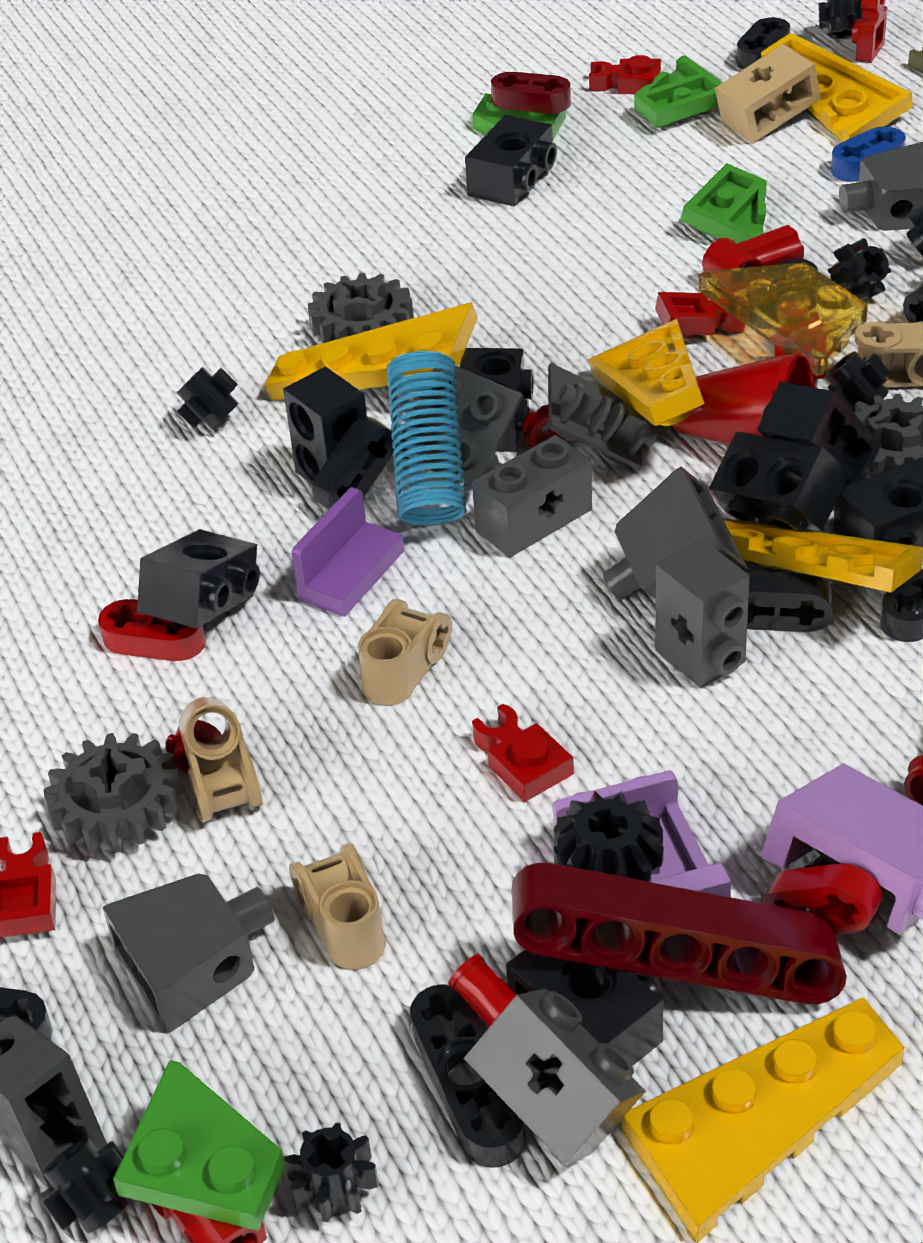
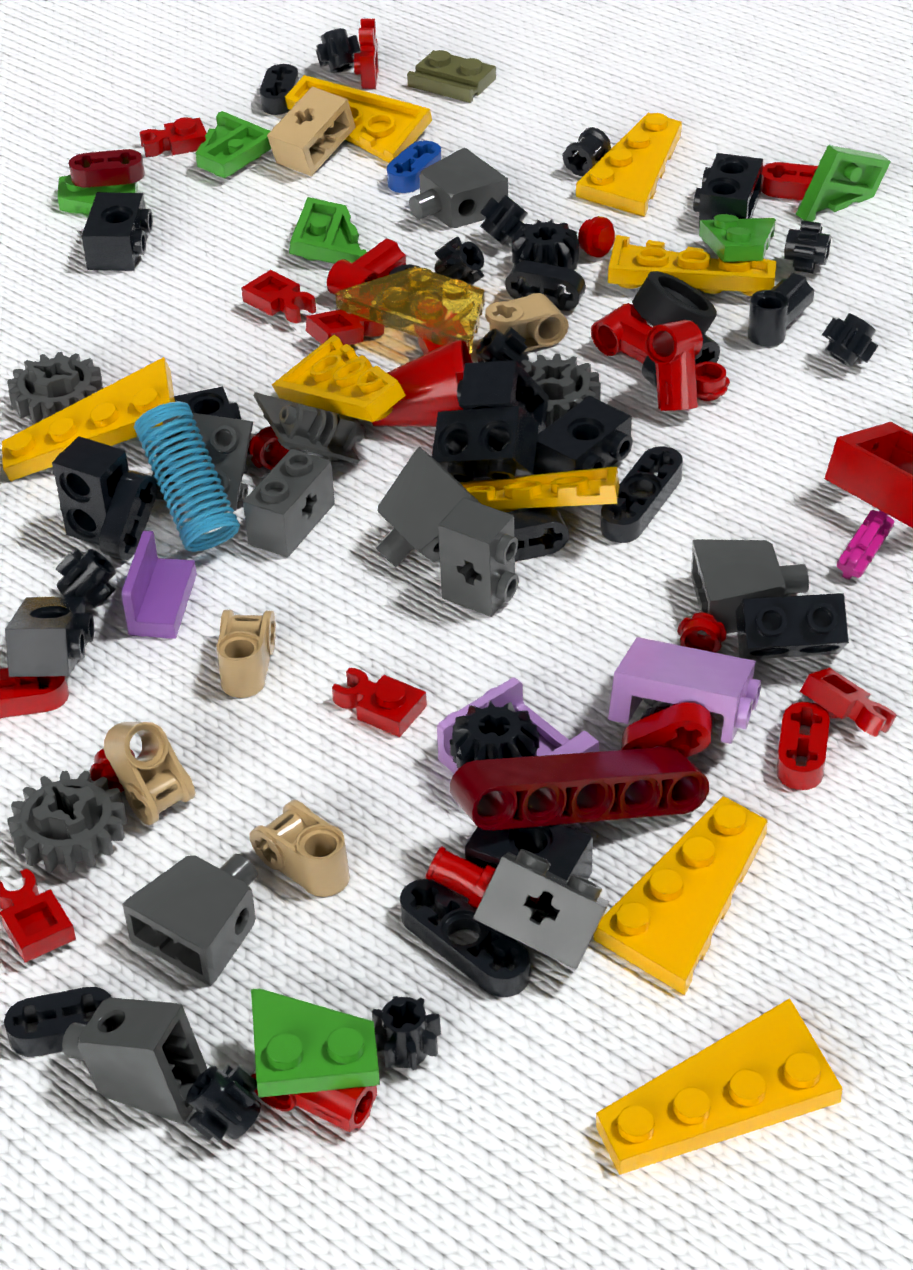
camera: 25 degrees left, 0 degrees up
(276, 523) = (86, 577): none -> black gear
(644, 262) = (278, 293): none -> red plate

